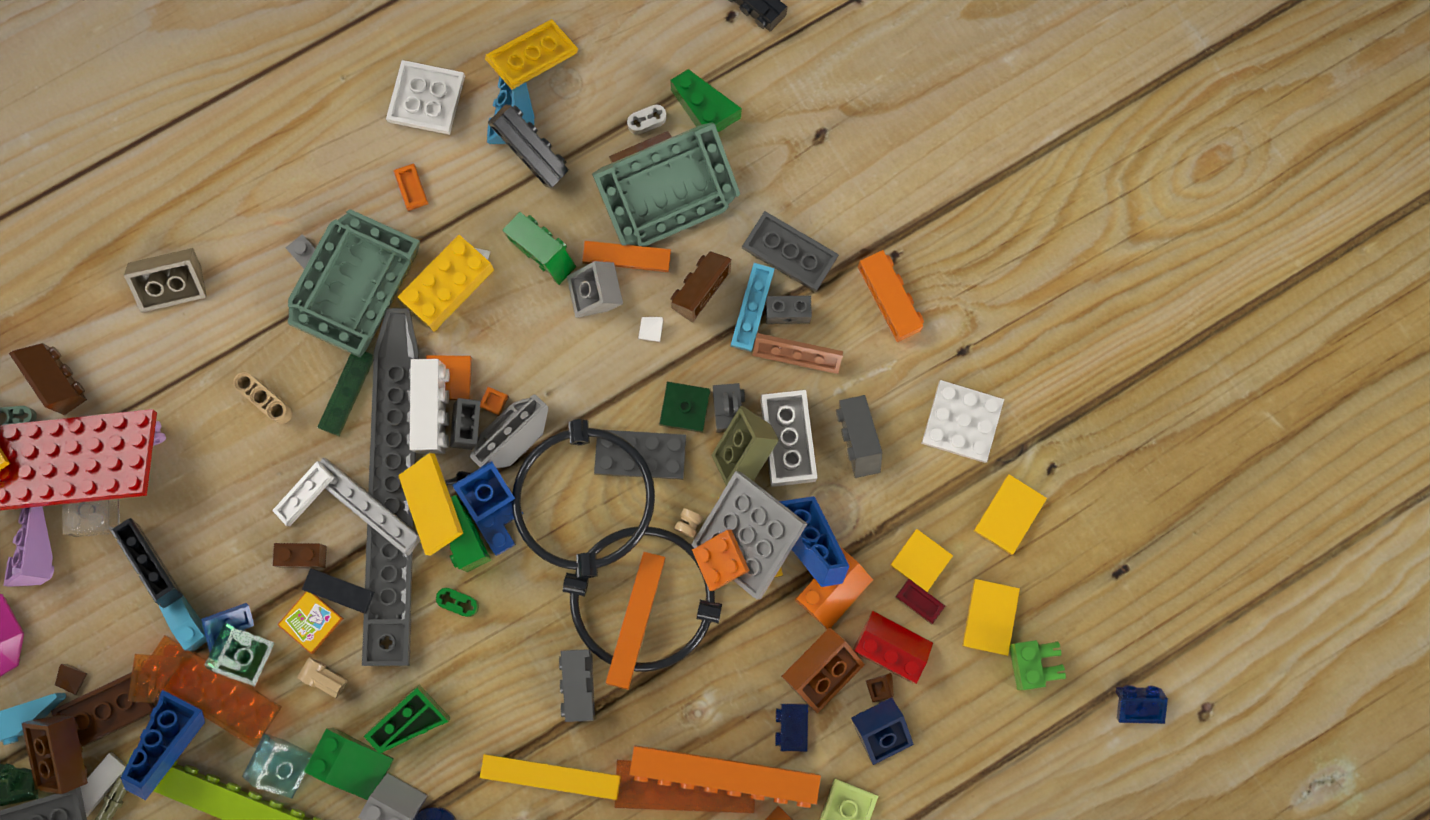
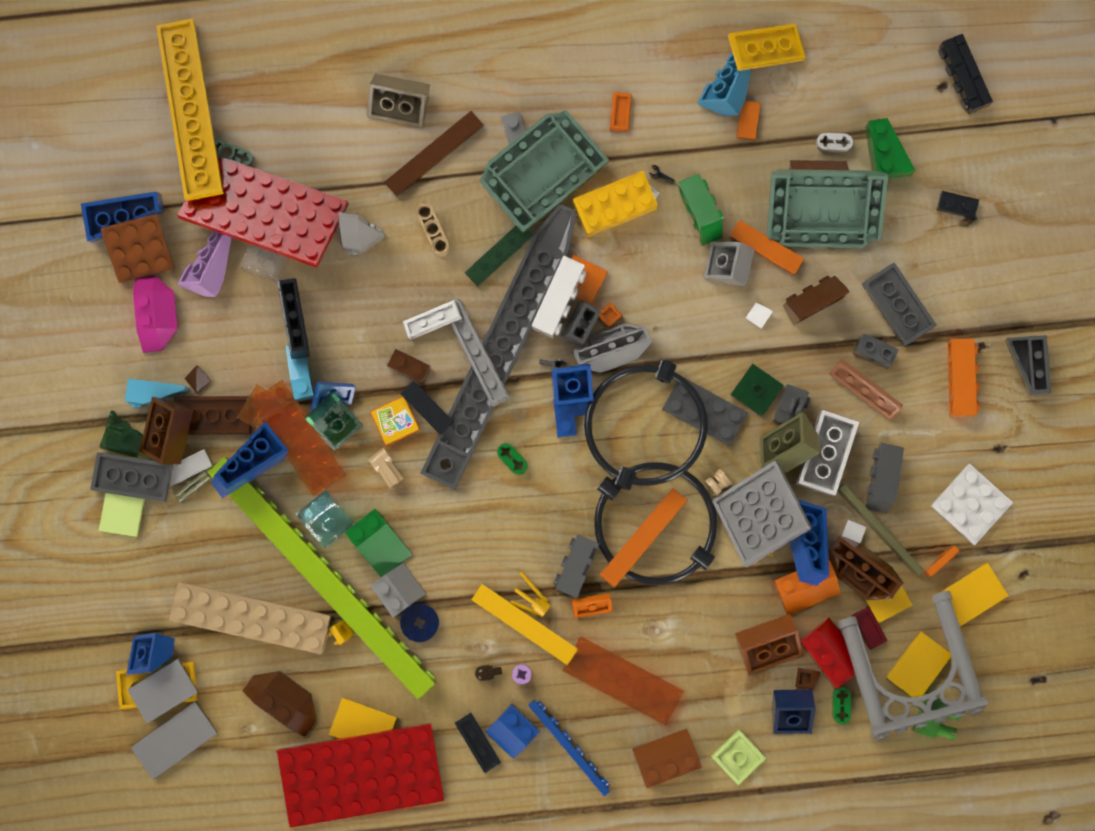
camera: 30 degrees right, 5 degrees up
(49, 377) = (278, 138): reddish brown slope -> none
(177, 440) = (357, 234): none -> light grey wedge
(230, 318) = (433, 153): none -> reddish brown tile
(408, 719) = (436, 530): green wedge -> none
(425, 97) = (665, 43): white plate -> none
(430, 504) = (528, 375): yellow tile -> none
(467, 549) = (541, 415): green slope -> none
(481, 232) = (660, 175): none -> black hand
(528, 146) = (730, 123): black brick -> none
(547, 129) = (748, 121): none -> orange tile
(556, 750) = (539, 606): none -> yellow plant
(614, 720) = (592, 605): none -> orange plate
(720, 560) = (730, 523): orange plate -> none
(725, 775) = (658, 686): orange brick -> none
(752, 307) = (847, 335): medium azure plate -> none
(793, 727) = (725, 675): clear blue bracket -> none
(802, 125) = (957, 204): none -> black plate
(855, 508) = (853, 531): none -> white tile
(882, 492) = (880, 530): none -> olive tile
(884, 543) = (863, 570): none -> reddish brown wedge
(935, 696) = (846, 705): none -> green beam
(950, 664) = (959, 660): none -> light grey arch
(953, 247) = (1032, 362): none -> dark grey wedge
(960, 495) = (943, 559): none -> orange tile
(1141, 705) = (1003, 788): clear blue bracket -> none

